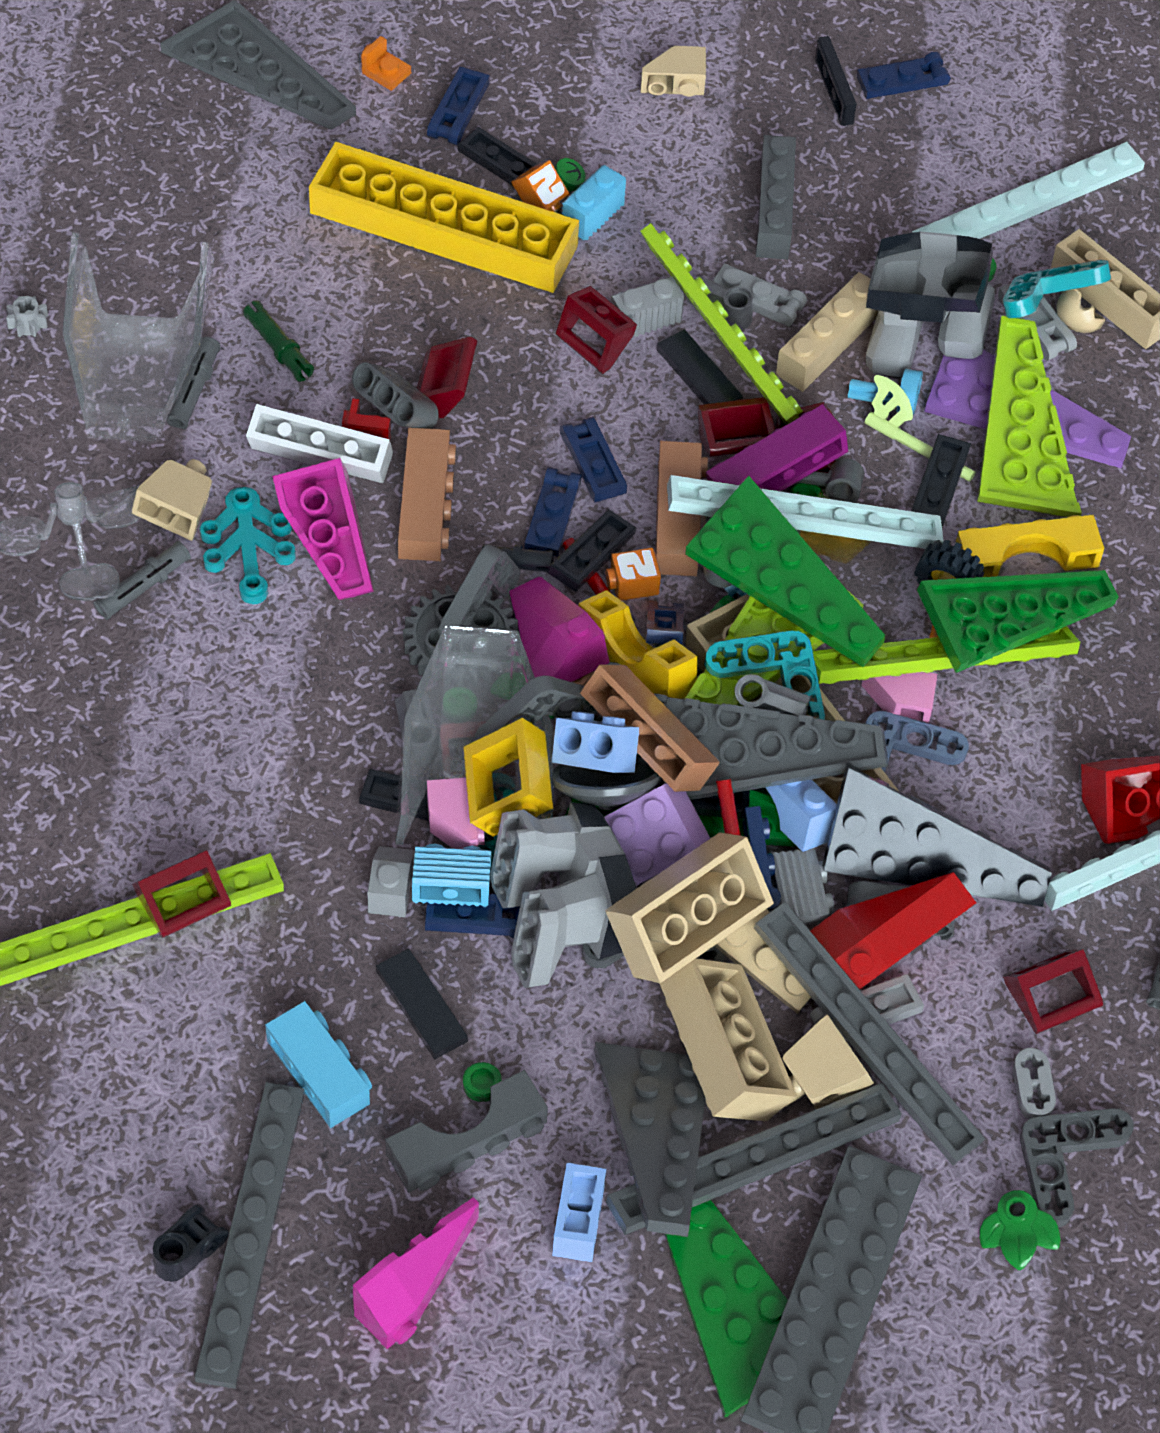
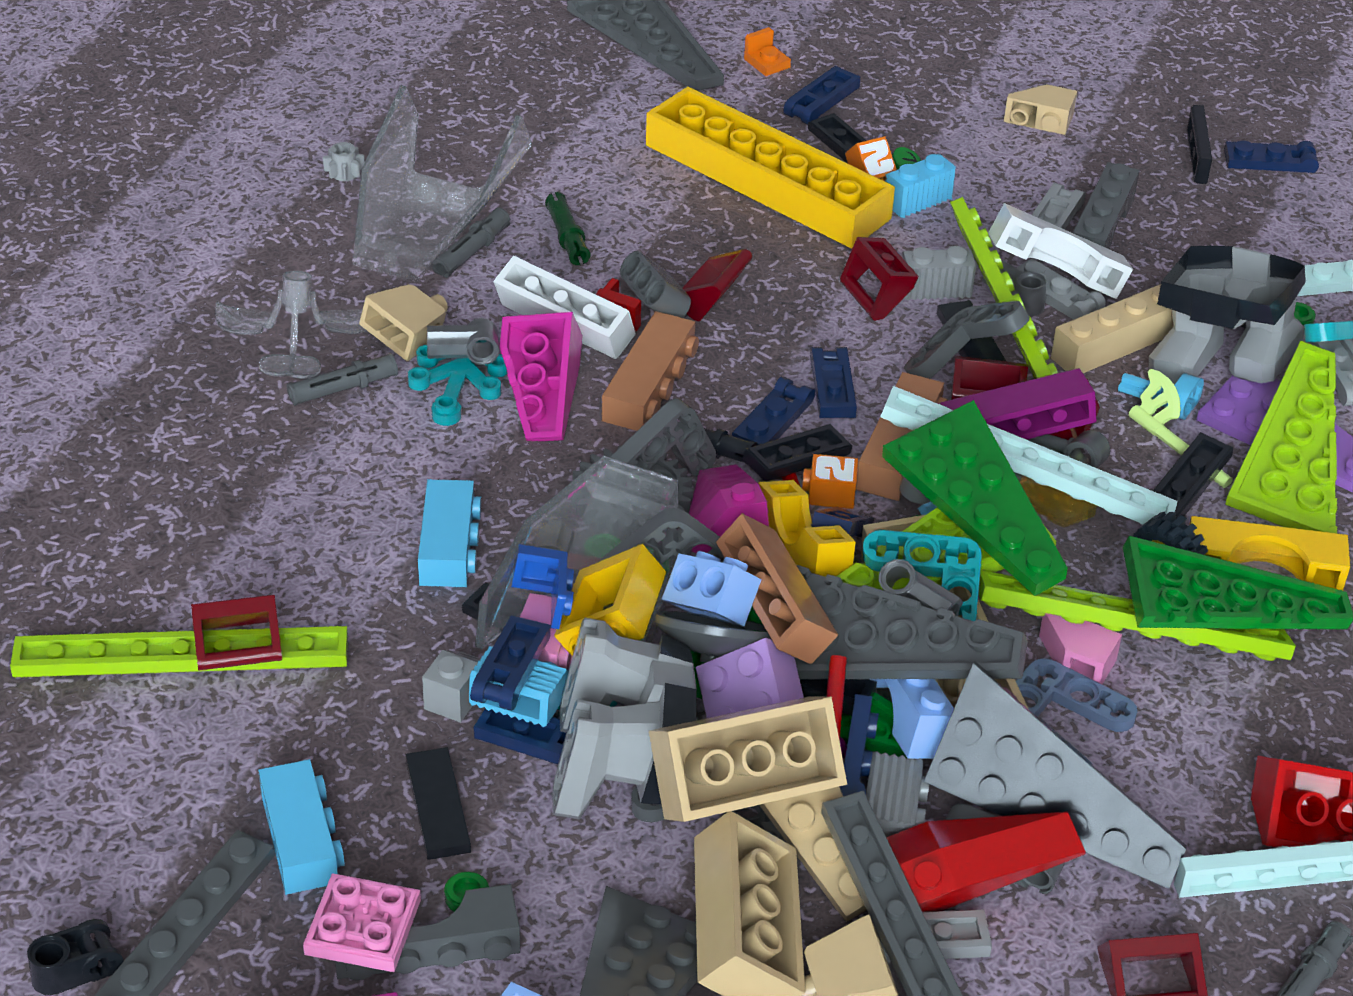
camera: 20 degrees right, 15 degrees down
(254, 508) = (461, 341): none -> flat silver piece
(317, 727) = (448, 533): none -> medium azure brick
(420, 1143) = (362, 922): none -> bright pink tile
(445, 760) = (545, 572): none -> blue bracket
(447, 861) = (510, 662): none -> dark blue plate
(691, 373) = (967, 324): none -> dark grey beam
(727, 204) = (1059, 205): none -> light grey plate
(787, 262) = (1035, 238): none -> white arch

